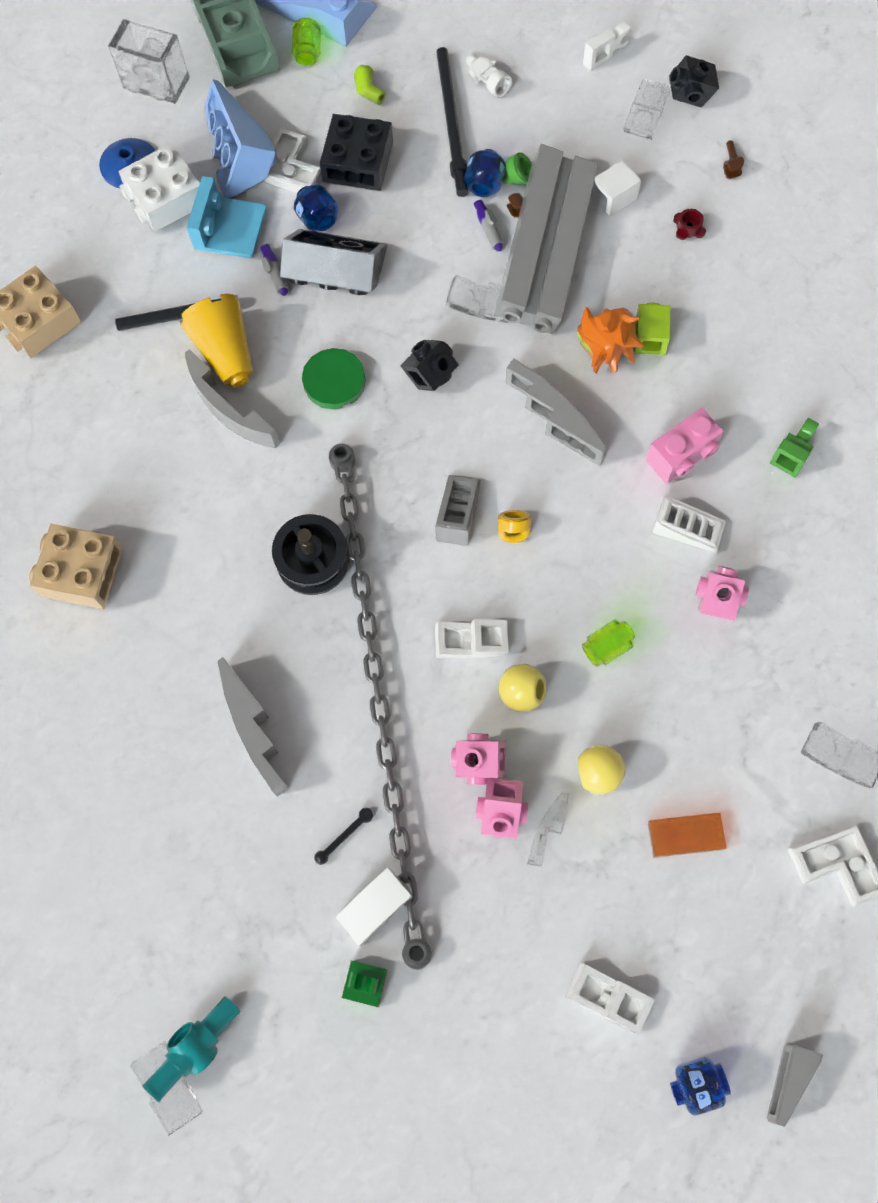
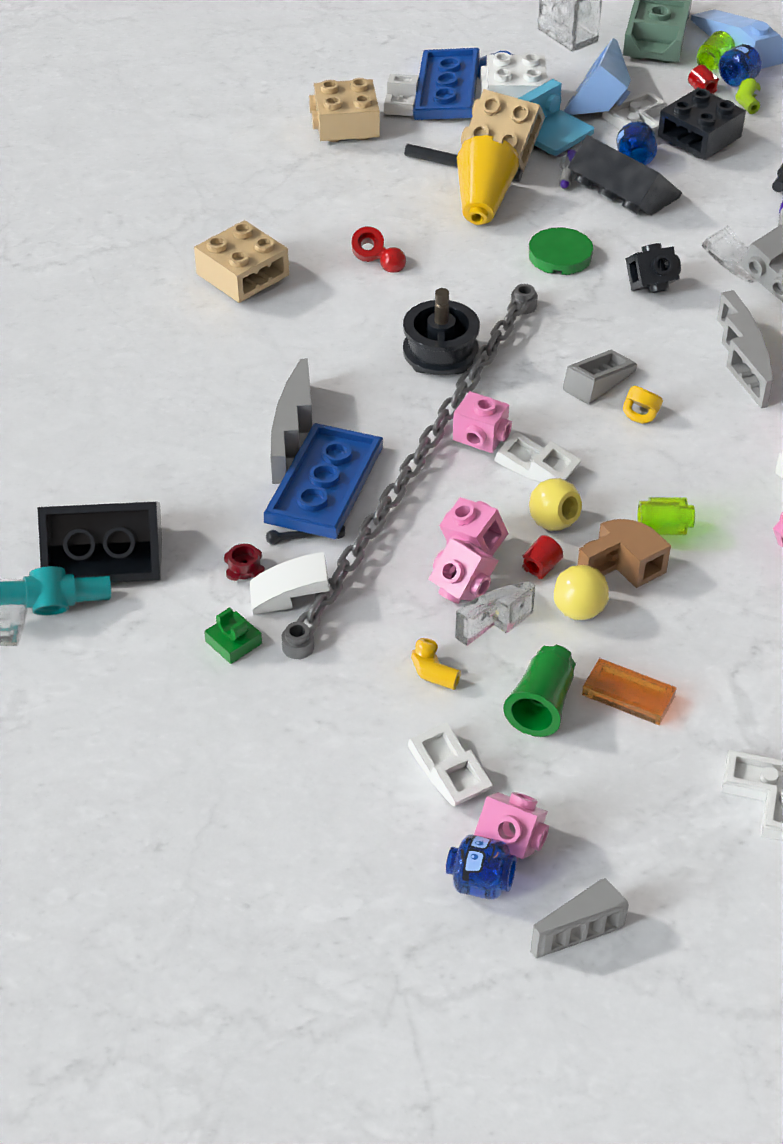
camera: 30 degrees right, 25 degrees down
(63, 254) = (400, 94): none -> white slope
(95, 216) = (447, 84): none -> blue tile
(191, 964) = (103, 540): none -> black slope
(196, 266) = (506, 120): none -> tan brick
(199, 474) = (391, 259): none -> red plate
(250, 427) = (458, 243): light grey slope -> none
(319, 87) = (703, 78): none -> red hose
(320, 772) = (323, 481): none -> blue tile
(320, 914) = (243, 562): none -> dark red plate
(341, 52) = (739, 64): none -> clear blue head
(409, 634) = (481, 422): none -> bright pink brick
(531, 912) = (429, 667): none -> yellow arm
(543, 744) = (542, 556): none -> red hose
(603, 694) = (628, 548): none -> medium nougat brick
(634, 885) = (540, 695): none -> green plant
(698, 1035) = (518, 810): none -> bright pink brick

